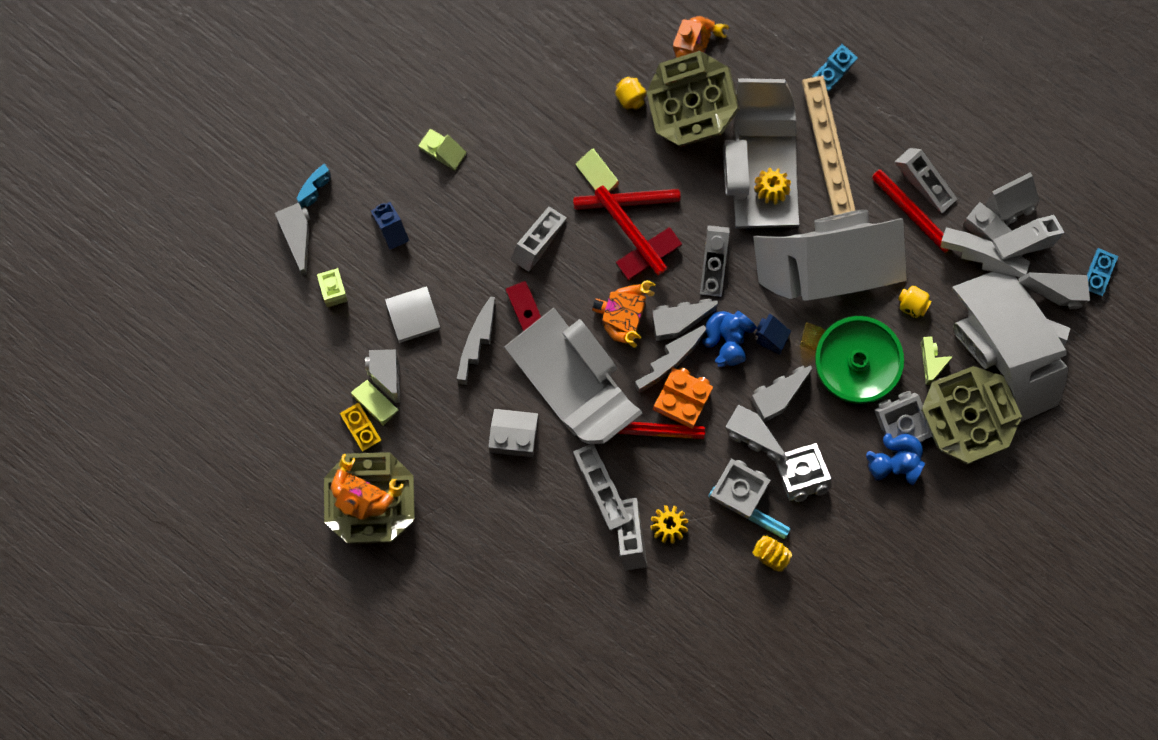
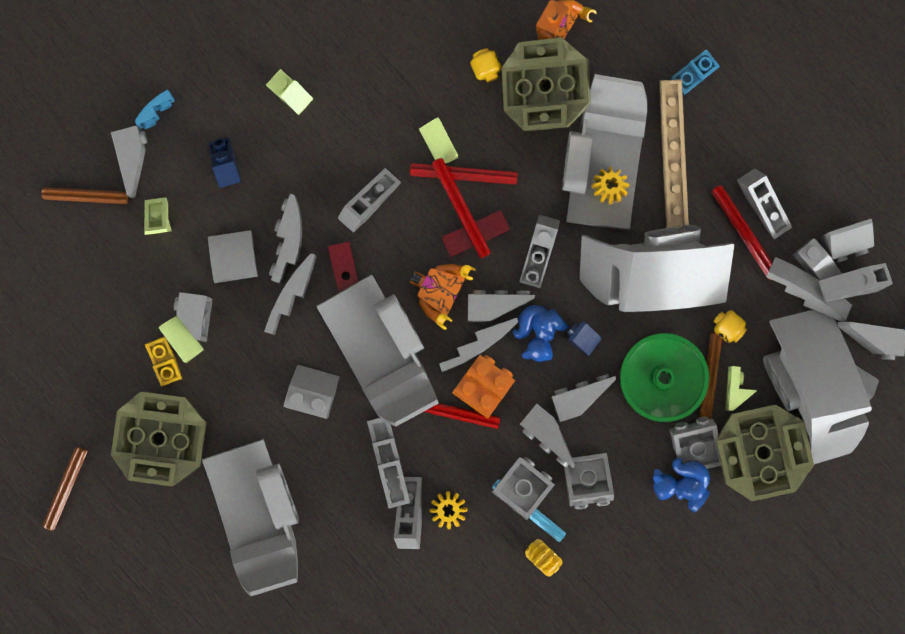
camera: 10 degrees right, 10 degrees up
(255, 280) = (84, 195): none -> dark orange axle
(281, 567) = (64, 488): none -> dark orange axle
(358, 496) = (146, 439): orange torso -> none
(466, 282) = (291, 231): none -> light grey slope
(476, 558) = (255, 516): none -> light grey beam
(811, 336) = (622, 343): clear yellow slope -> none
(904, 337) = (713, 363): none -> dark orange axle

